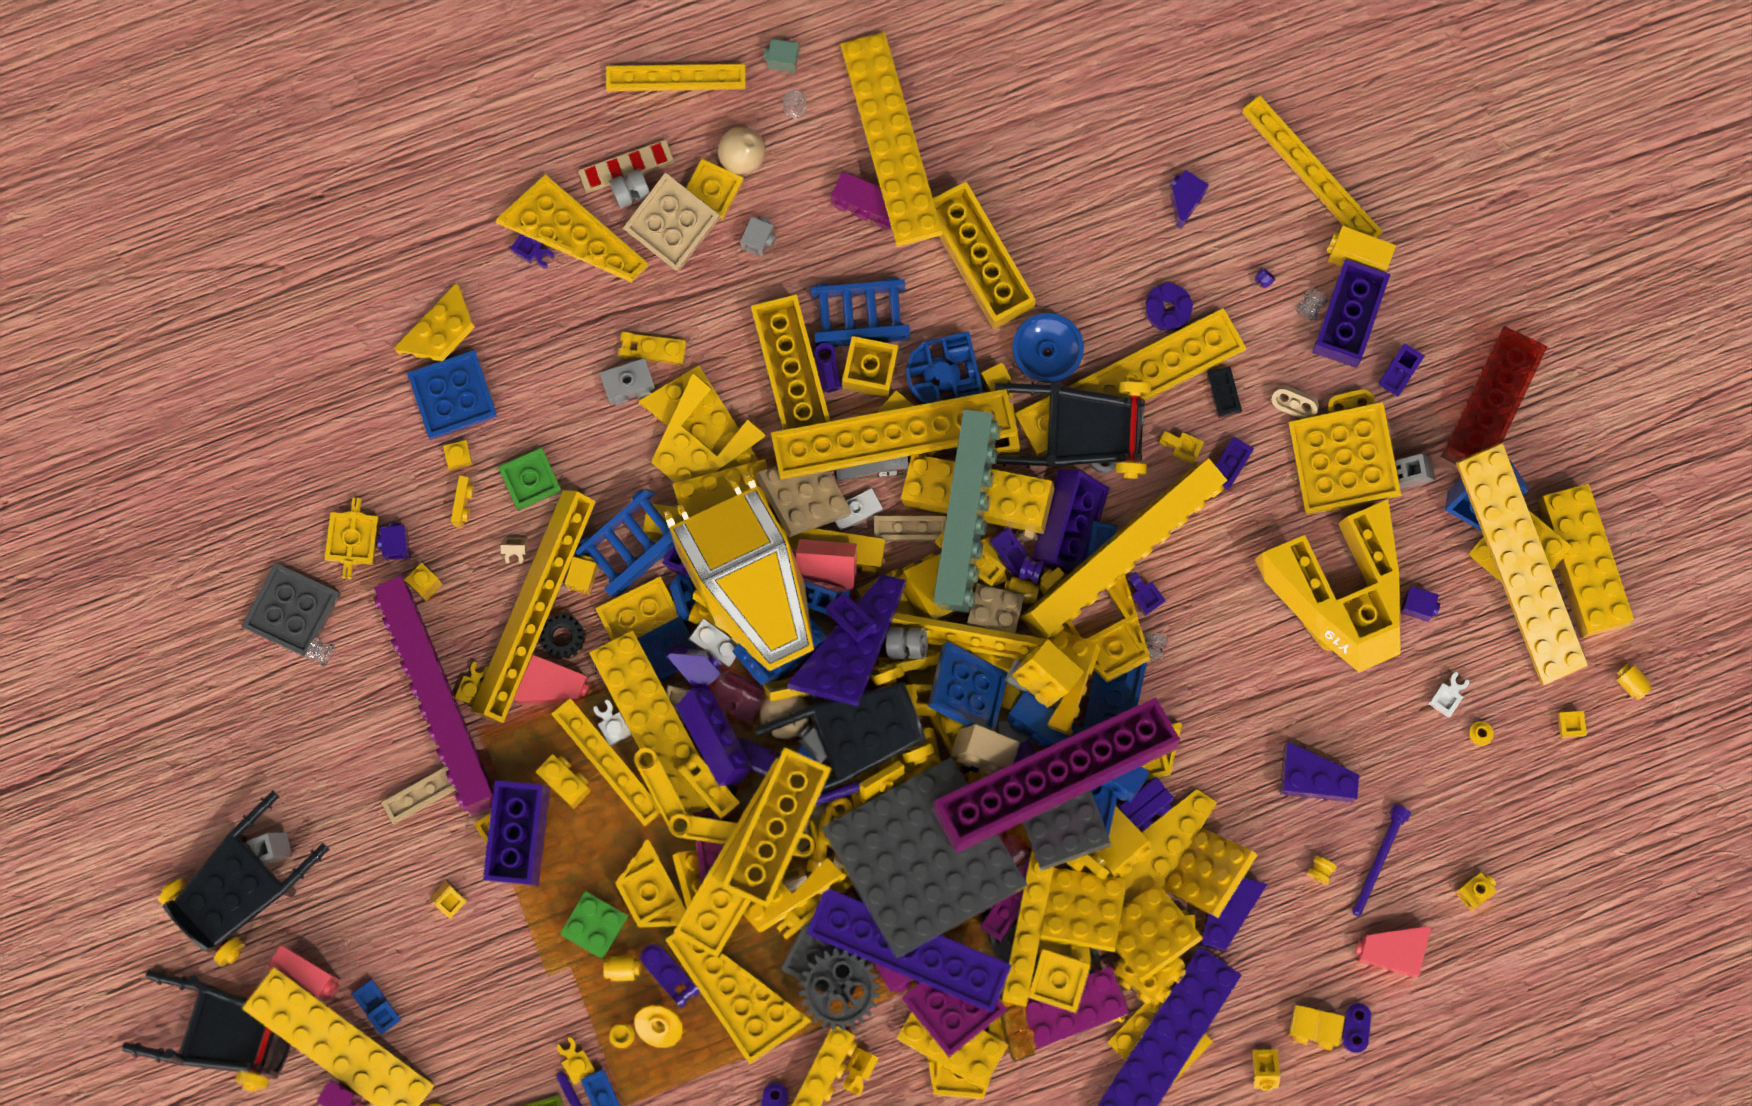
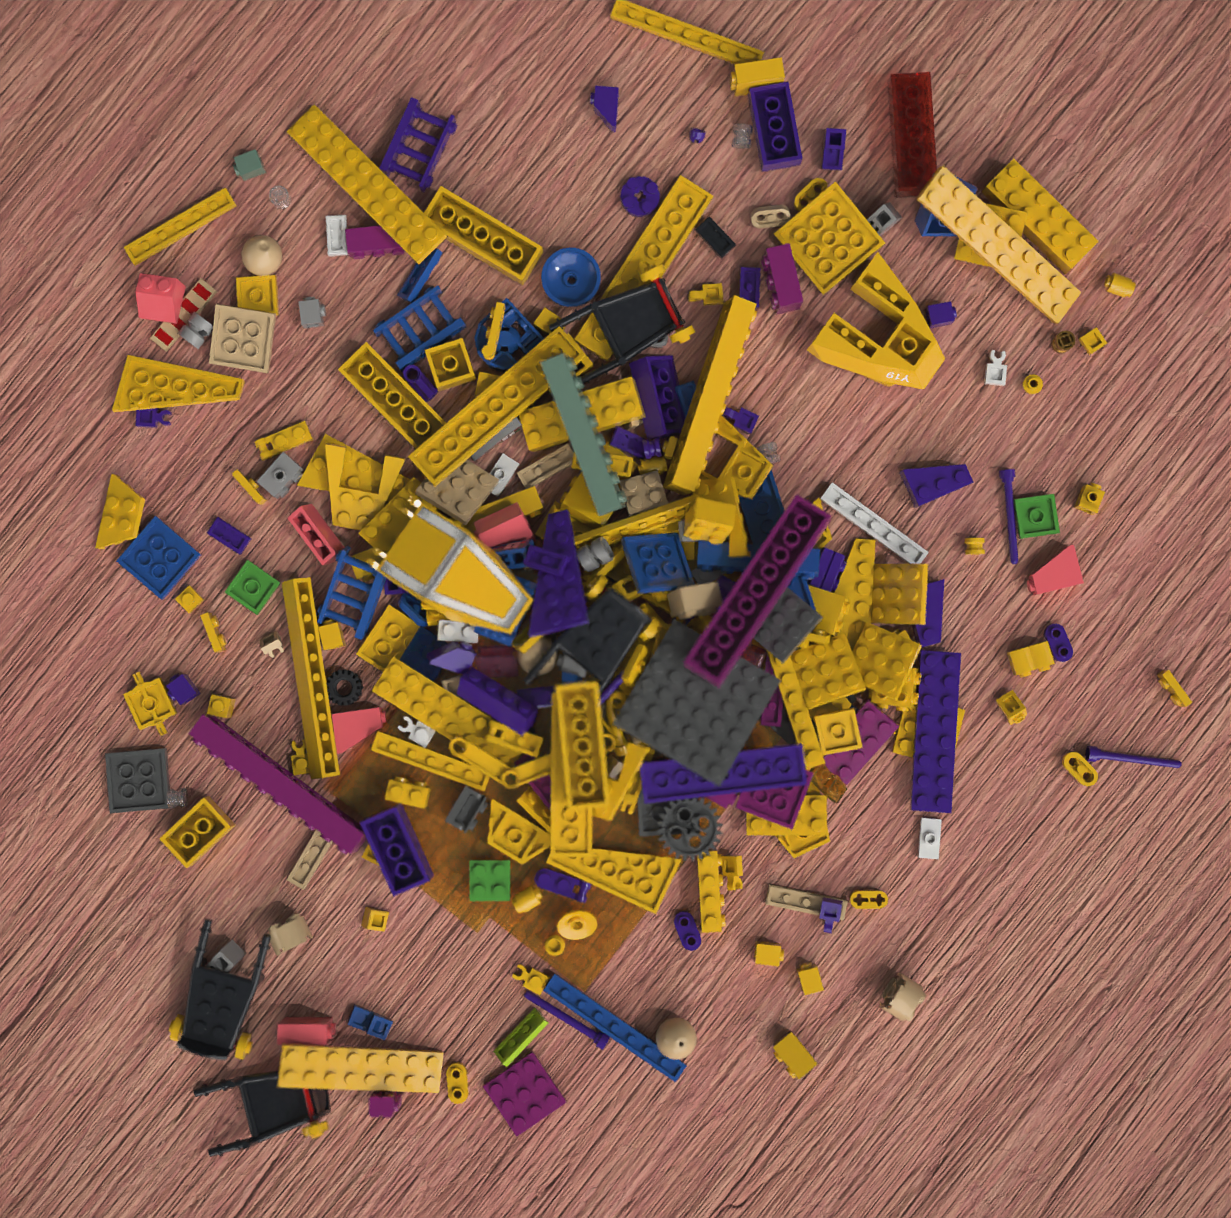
camera: 30 degrees left, 10 degrees up
(320, 697) = (197, 831): none -> yellow brick
(349, 860) = (289, 934): none -> tan brick
(537, 413) = (229, 535): none -> dark purple plate
(589, 375) = (250, 486): none -> yellow plate
(612, 135) = (159, 298): none -> coral slope
(615, 834) = (466, 809): none -> dark grey hinge
(628, 460) = (316, 533): none -> coral brick
(829, 173) = (336, 235): none -> white plate
(891, 260) = (418, 276): none -> blue plate
(935, 356) = (493, 332): none -> yellow plate
(964, 107) = (406, 129): none -> dark purple fence
(1223, 784) = (873, 525): none -> white plate
(1269, 472) = (782, 279): none -> magenta brick
(1407, 876) = (1036, 516): none -> bright green plate
(1535, 710) = (1061, 345): none -> pearl gold wheel

